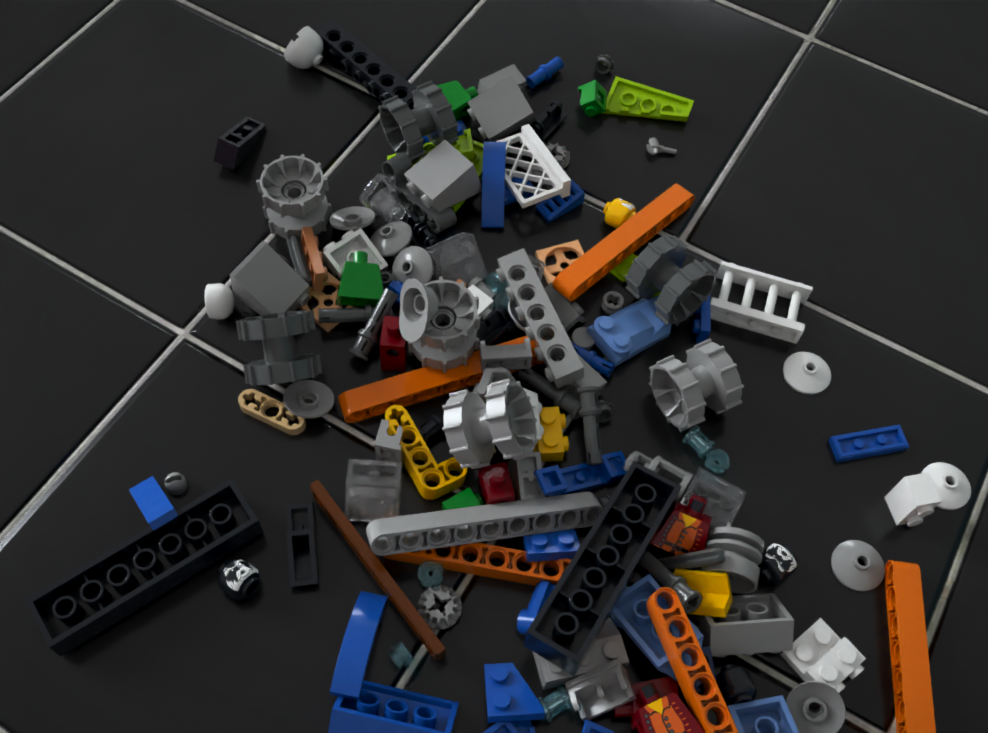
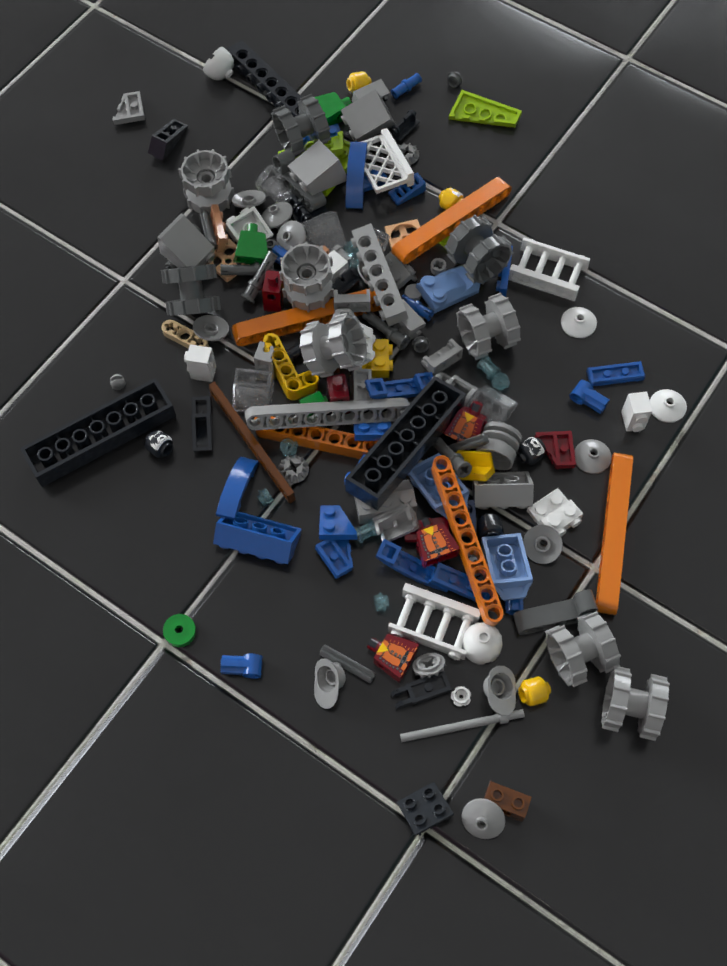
camera: 10 degrees right, 5 degrees up
(153, 503) = (102, 392): blue tile -> none
(188, 105) = (129, 109): none -> light grey wing
(219, 301) = (149, 257): white hair -> none
(296, 452) = (200, 363): none -> white brick
(417, 308) = (287, 263): light grey piece -> none
(483, 66) = (357, 80): none -> yellow head
(590, 413) = (409, 343): dark grey pin -> none
(592, 98) = (441, 107): green brick -> none
(634, 429) = (443, 358): none -> light grey hinge
(655, 148) = (486, 148): light grey hand -> none
(814, 556) = (559, 448): none -> dark red wing
(833, 475) = (584, 394): none -> blue piece

